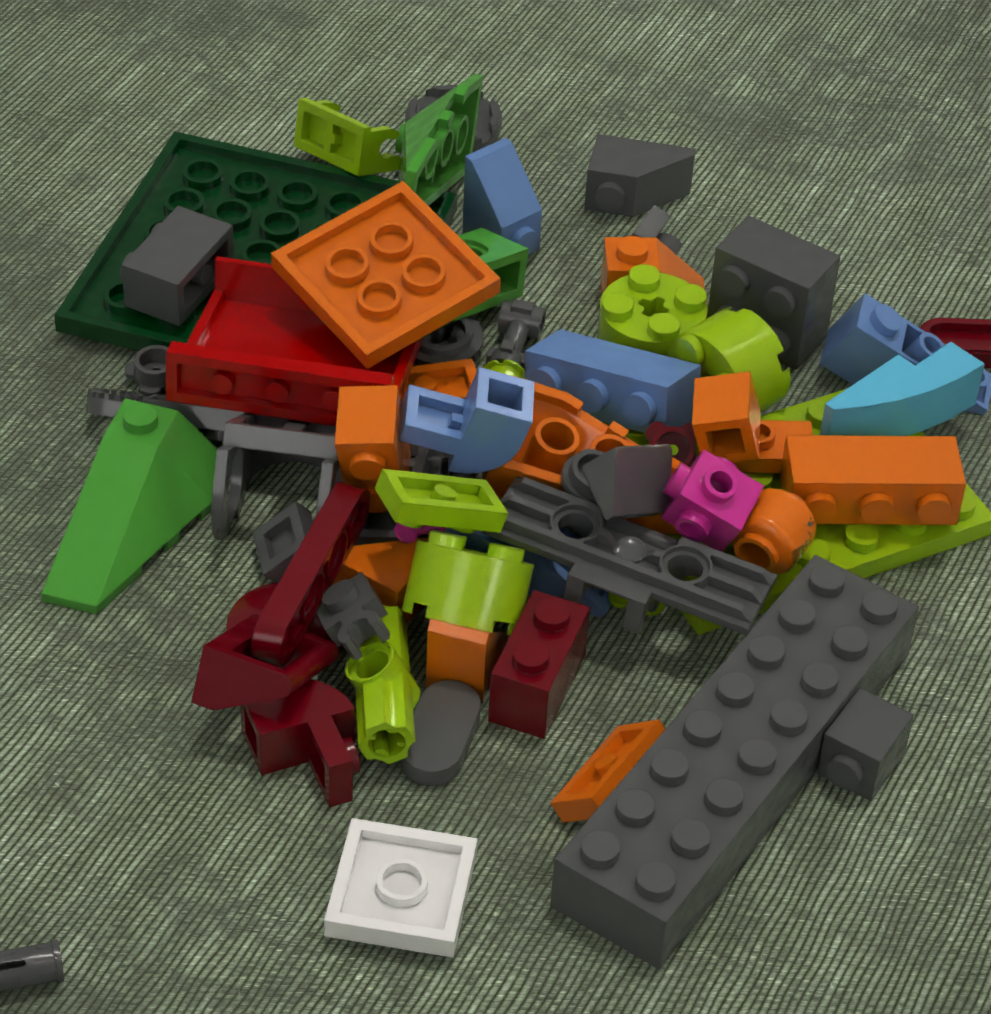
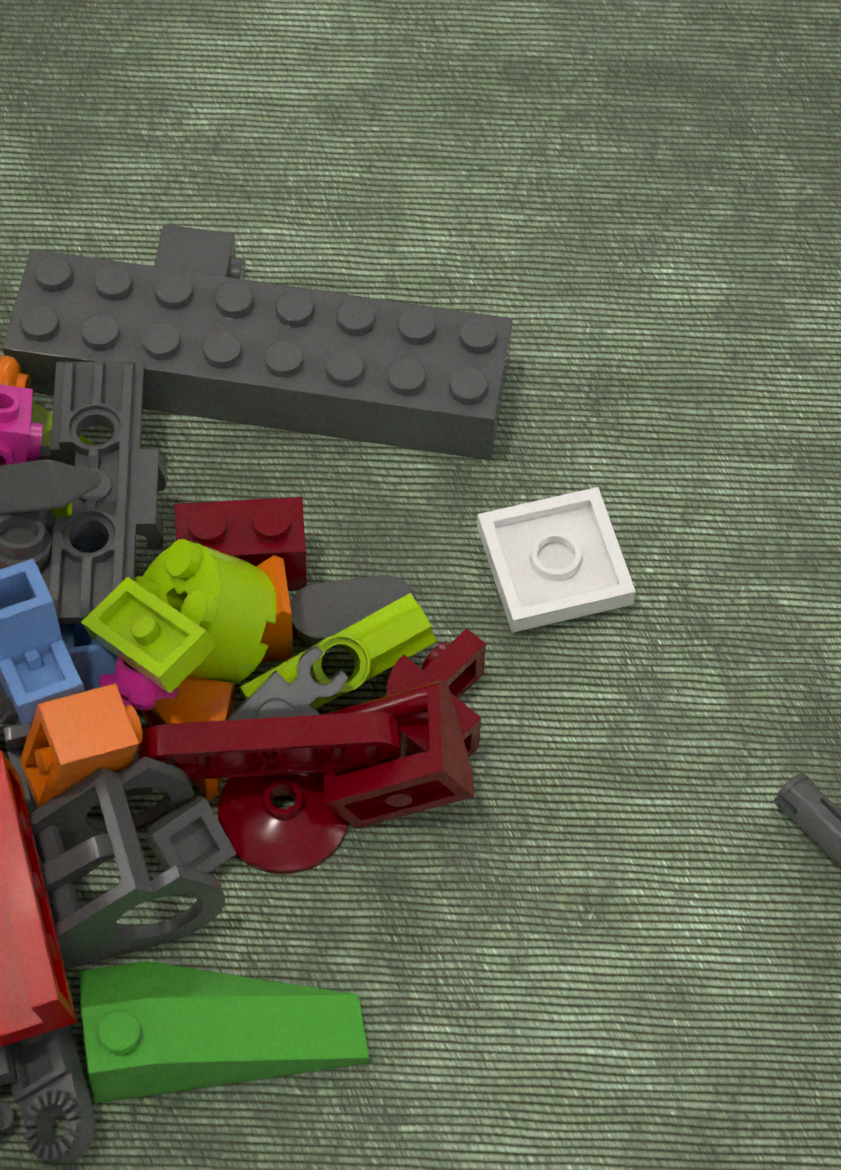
camera: 115 degrees left, 15 degrees up
(605, 770) = (335, 447): orange plate -> none

